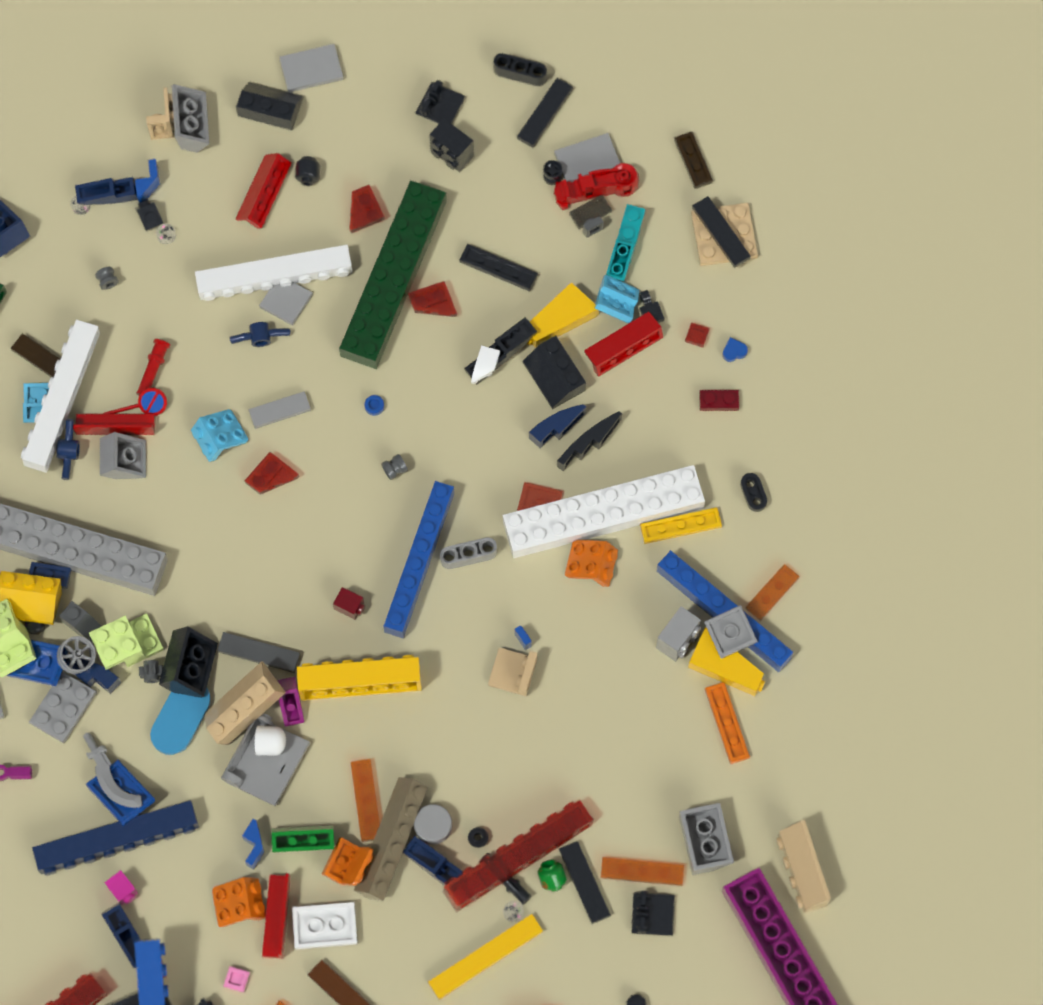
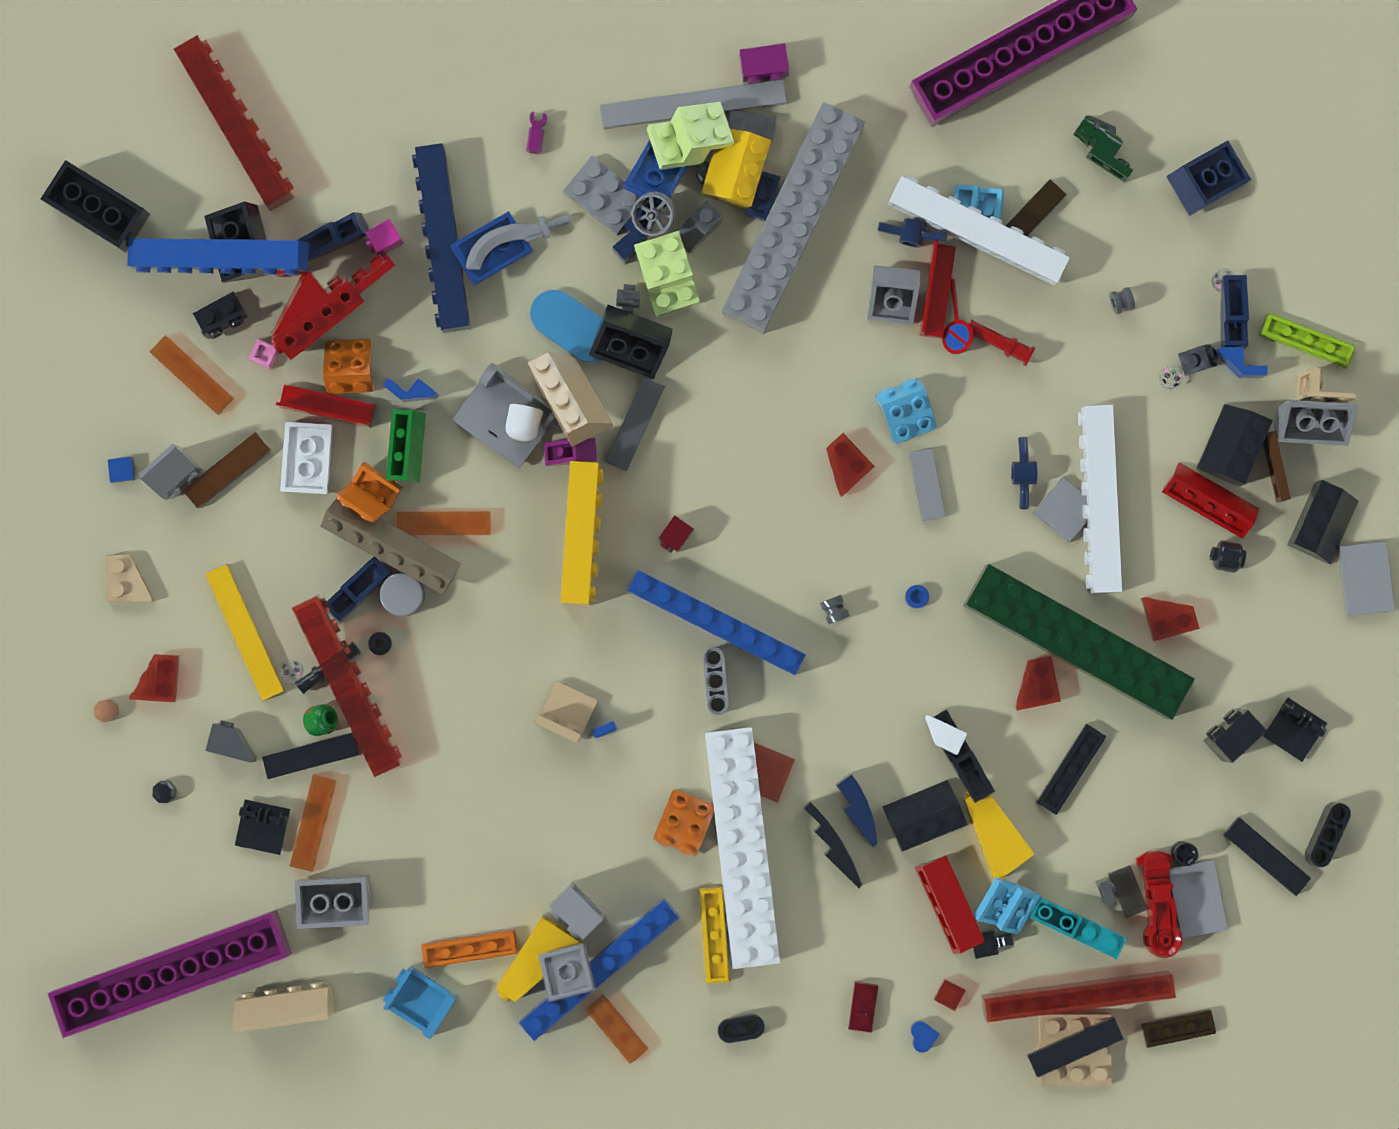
camera: 100 degrees right, 15 degrees up
(123, 136) = (1307, 340): none -> lime tile
(182, 934) = (317, 309): none -> red wedge
(215, 177) = (1234, 444): none -> black slope
(229, 144) = (1276, 467): none -> reddish brown tile
(583, 953) = (229, 742): none -> dark grey slope
(680, 236) = (1078, 996): none -> clear red brick
(778, 755) = (419, 1000): none -> dark azure panel

